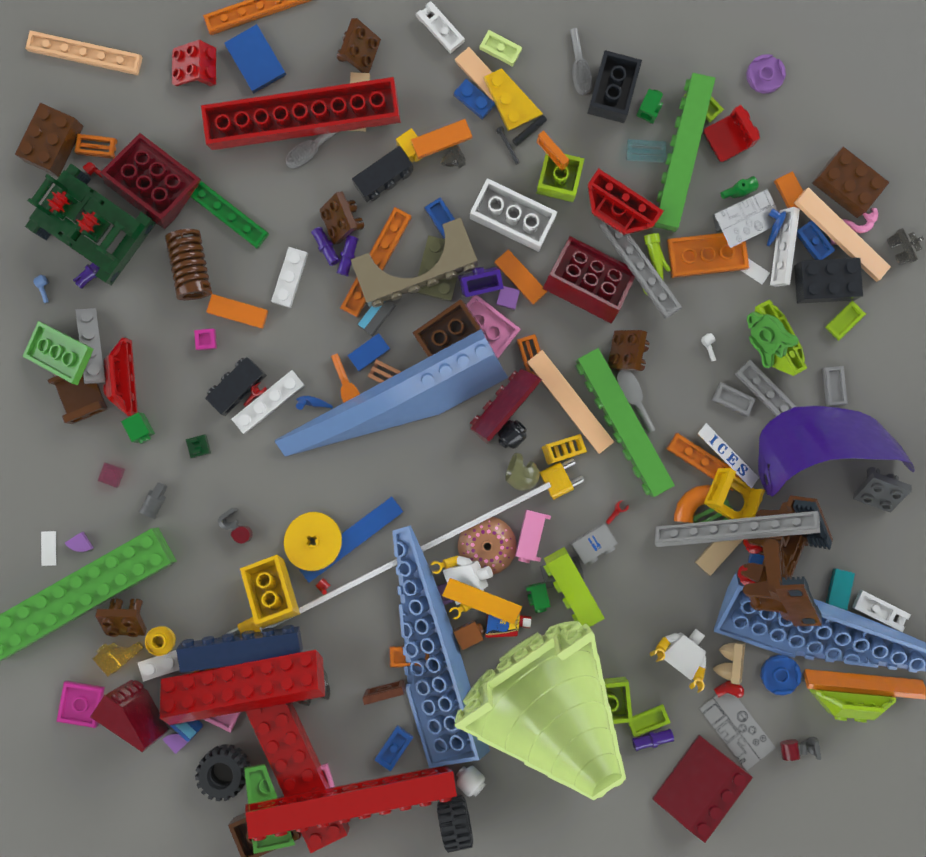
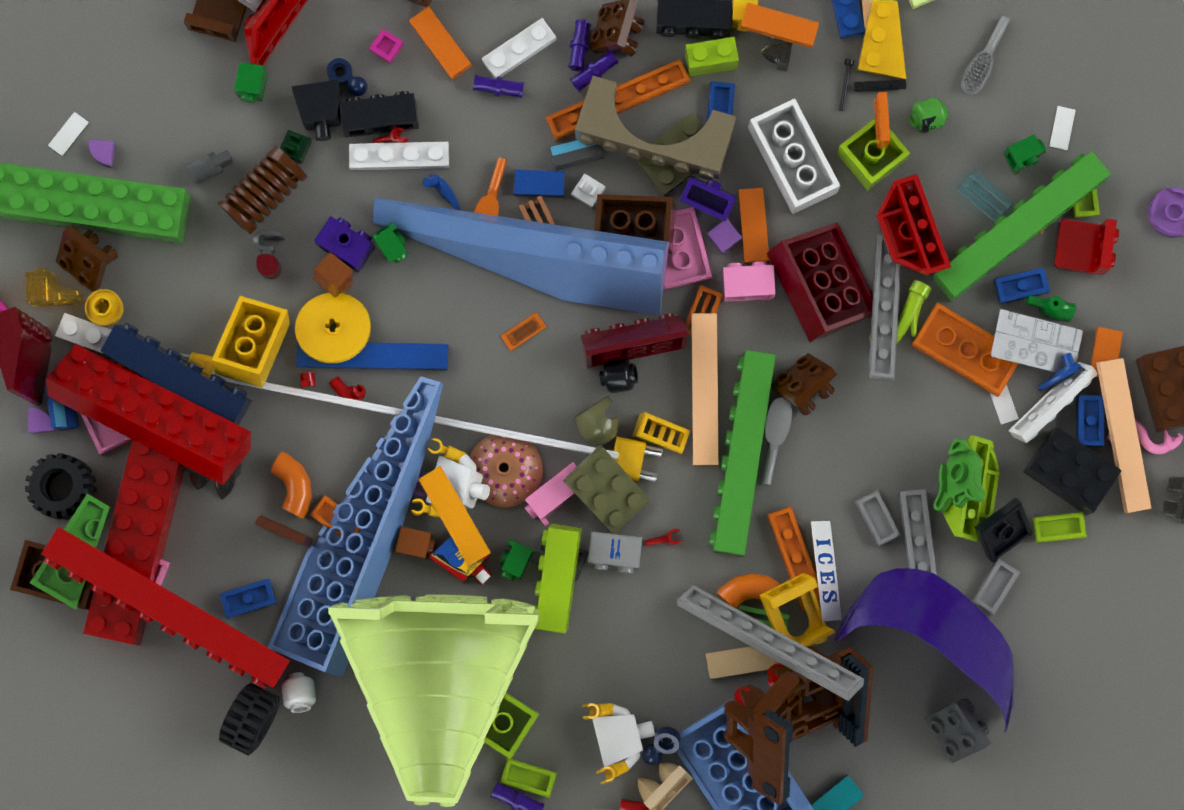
camera: 40 degrees right, 5 degrees down
(111, 475) = (187, 108): clear pink plate -> none
(193, 410) = (319, 106): none -> black torso
(202, 485) = (258, 185): none -> reddish brown piece
(206, 378) = (356, 85): none -> dark blue plate
(278, 483) = (345, 243): none -> dark purple brick
(287, 508) = (333, 275): none -> dark orange brick
(295, 311) = (498, 86): none -> dark purple pin
(307, 461) = (390, 243): none -> green brick
(358, 571) = (351, 392): none -> red arm
(368, 655) = (296, 482): none -> orange cylinder
(402, 333) = (587, 191): none -> white tile
(413, 191) = (711, 57): none -> lime brick
(431, 451) = (523, 331): none -> sticker
(545, 315) = (748, 282): none -> bright pink brick
(560, 511) = (606, 489): none -> olive plate
(574, 126) = (928, 115): none -> bright green head
(614, 86) = (1000, 105): black brick -> none
(659, 72) = (1062, 128): none -> white sticker
(707, 340) = (896, 436): white hand -> none
(711, 189) = (1020, 285): none -> blue plate
(714, 634) = (665, 741): none -> dark blue plate
(816, 348) = (1003, 530): none -> black tile

